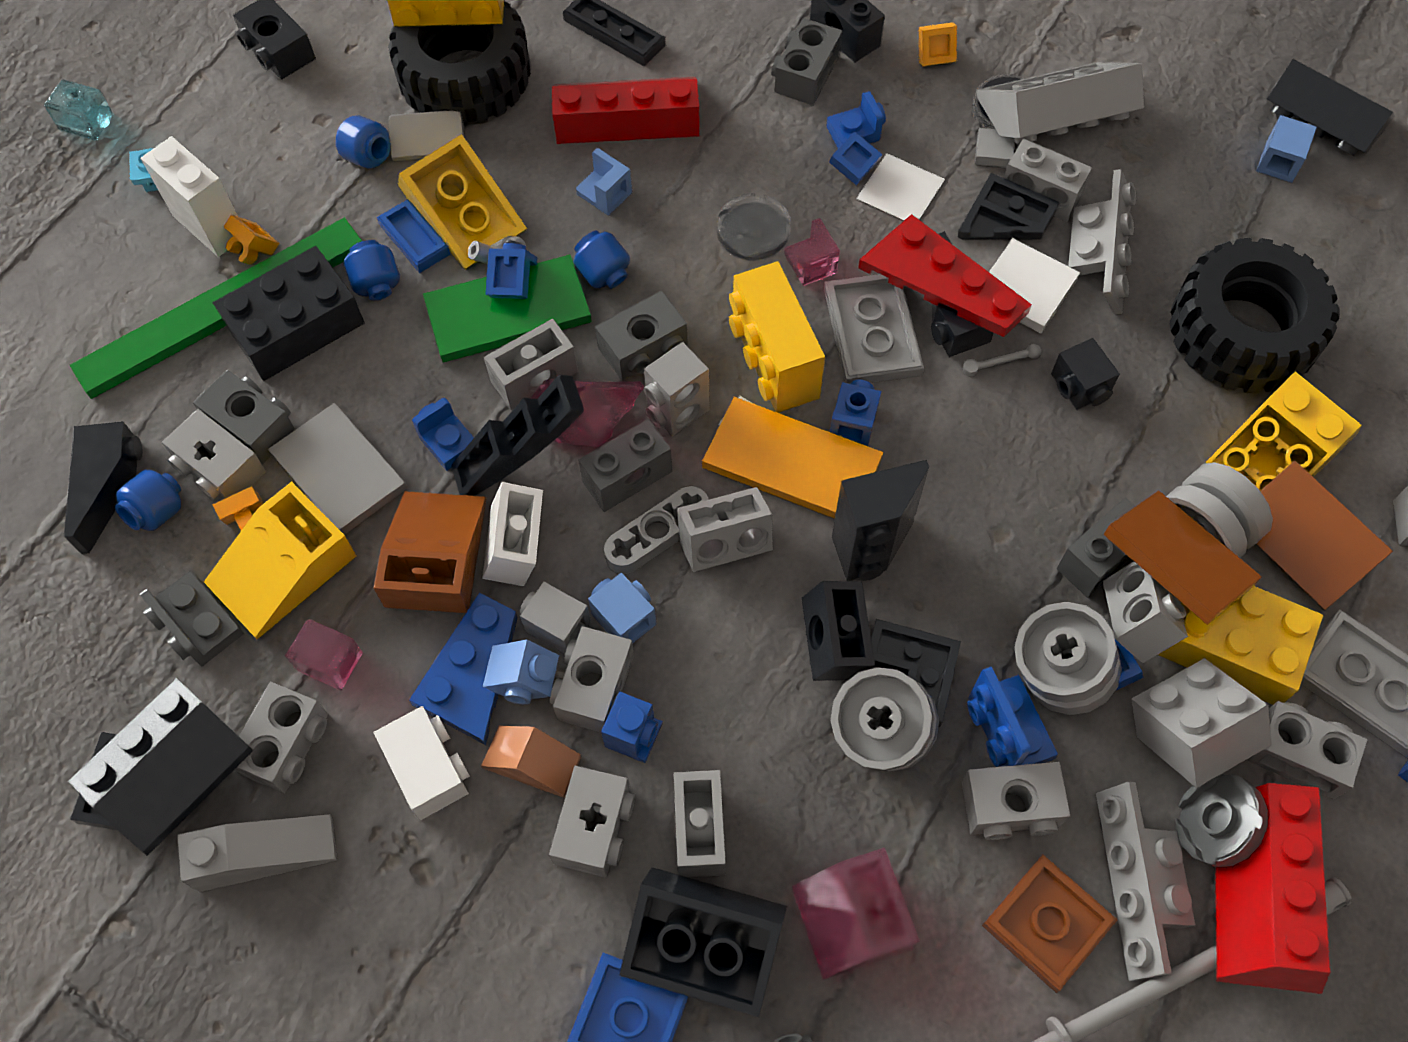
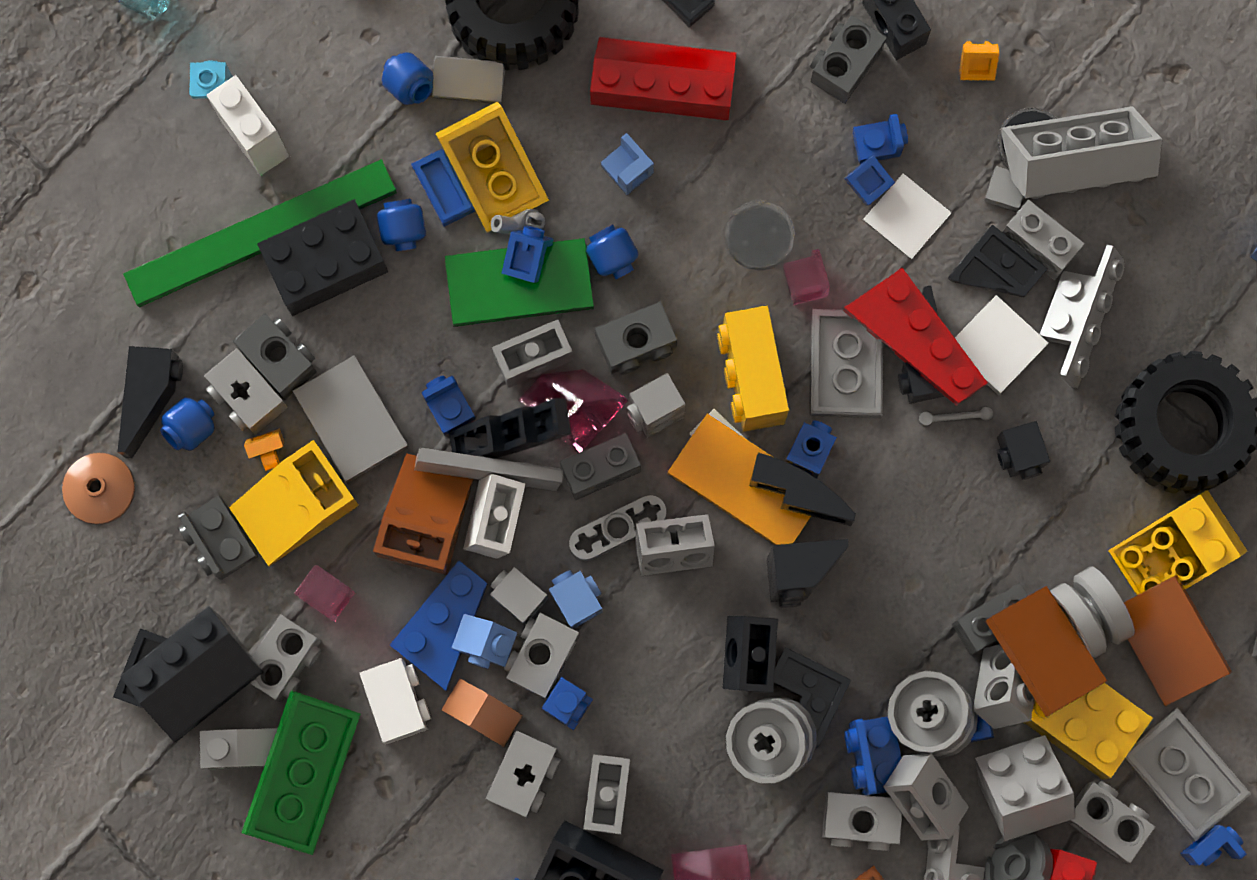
camera: 10 degrees right, 15 degrees up
(60, 601) = (112, 498): none -> nougat dish
(250, 238) = (293, 166): light orange tile -> none
(313, 871) = (301, 773): none -> green tile
(482, 484) = (480, 467): none -> light grey tile
(851, 445) = (800, 490): none -> black slope
(1087, 753) = (926, 796): none -> light grey brick

